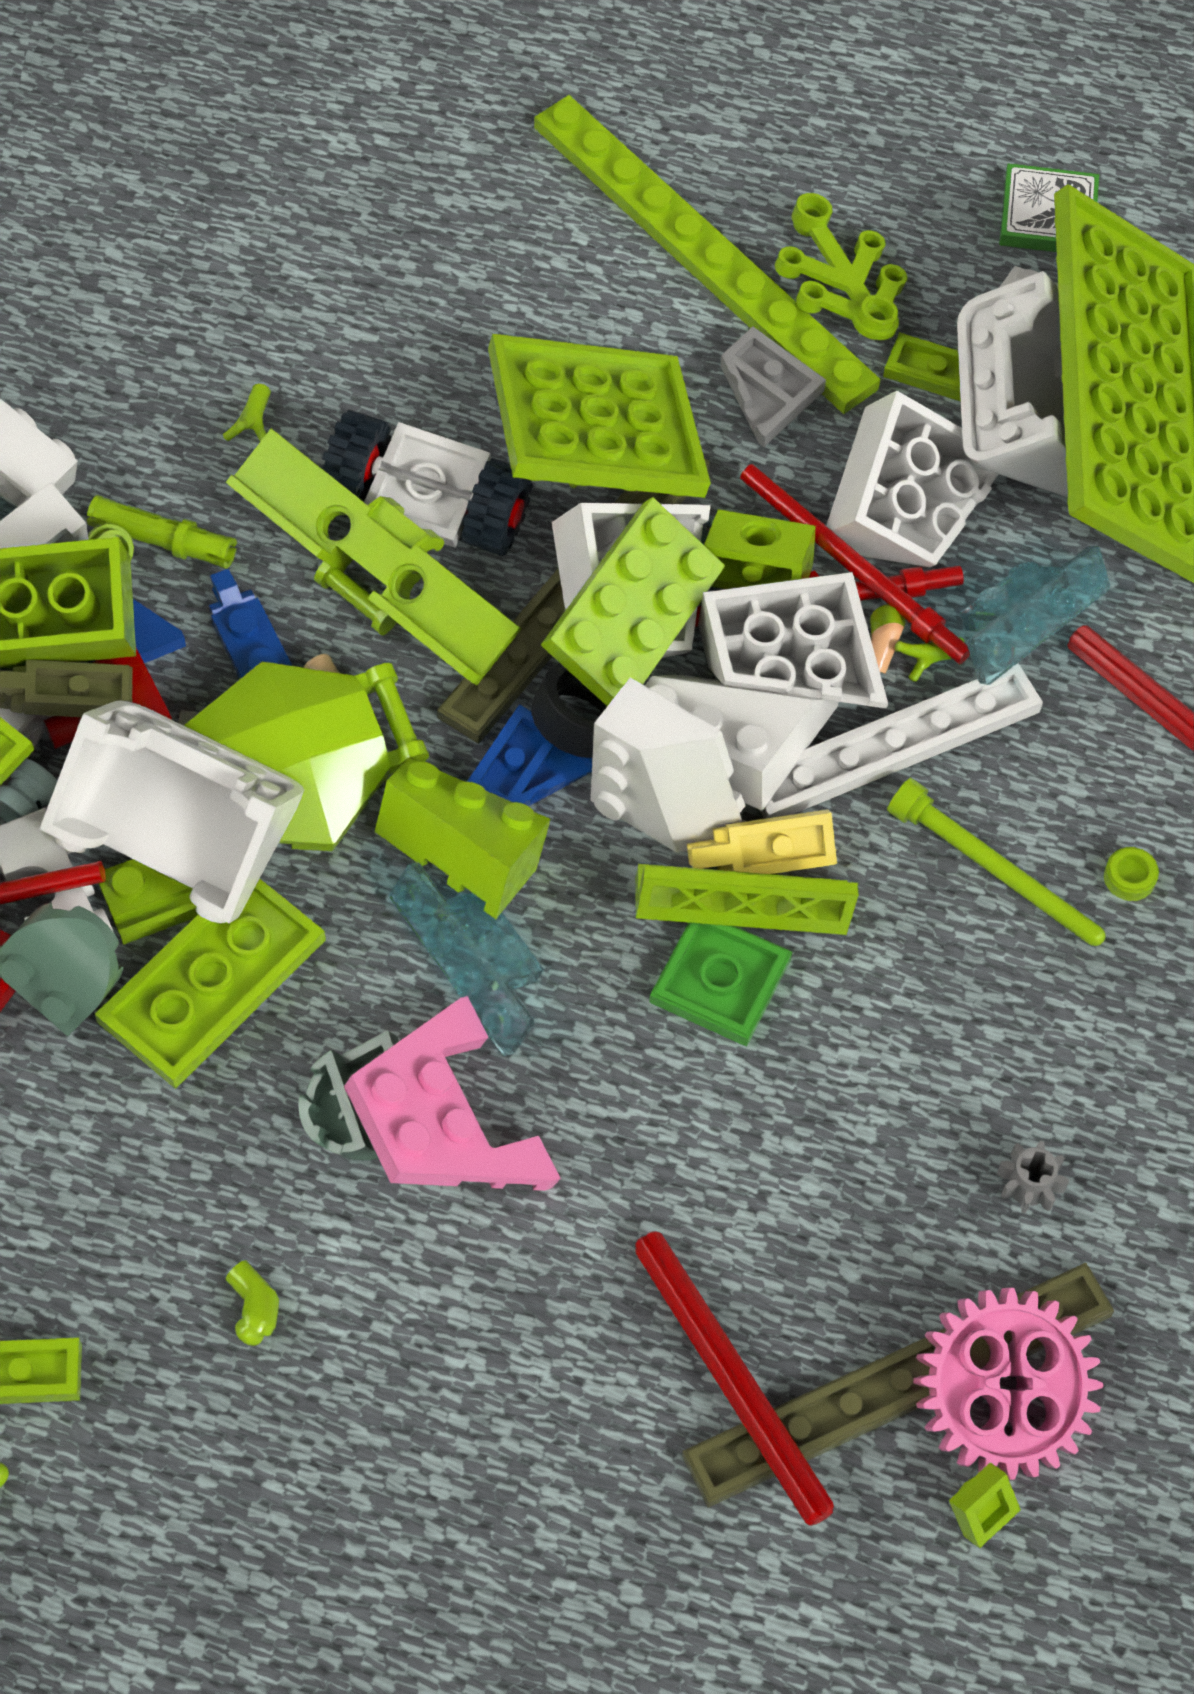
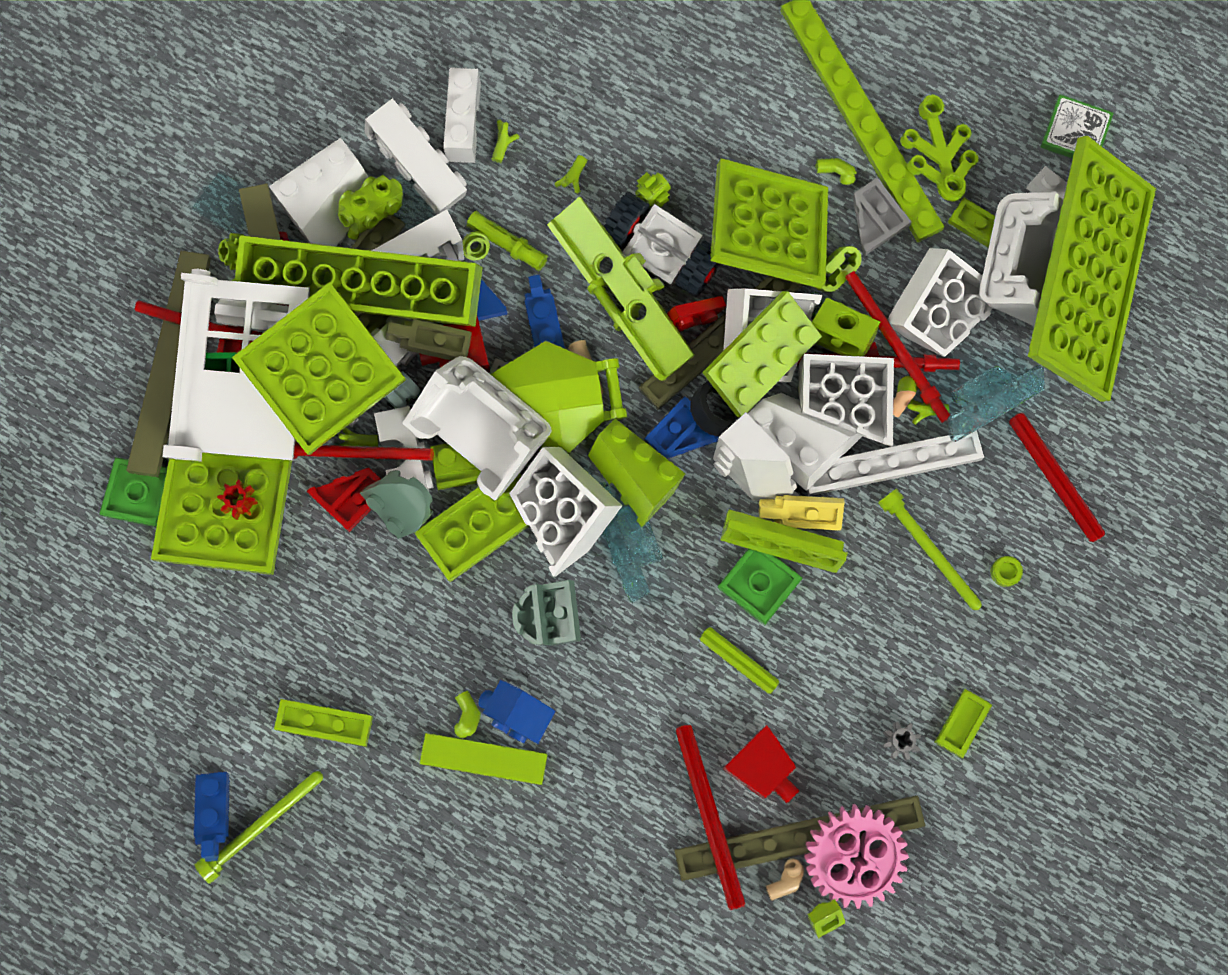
camera: 15 degrees right, 15 degrees up
(45, 357) = (461, 109): none -> white arch
(122, 388) = (502, 141): none -> lime bar
(300, 1373) = (483, 759): none -> lime tile
(344, 1265) = (516, 711): none -> blue brick
(350, 914) = (562, 507): none -> white wedge
(392, 403) = (653, 189): none -> lime gear
(424, 1120) = (576, 636): bright pink wing -> none
(508, 573) = (697, 312): none -> red wing
(684, 325) = (839, 166): none -> lime arm
(718, 1108) = (739, 660): none -> lime axle
(728, 476) = (840, 272): none -> lime beam
(805, 1271) = (764, 767): none -> red torso
(902, 1459) = (789, 882): none -> tan arm
(1129, 1130) = (963, 723): none -> lime tile

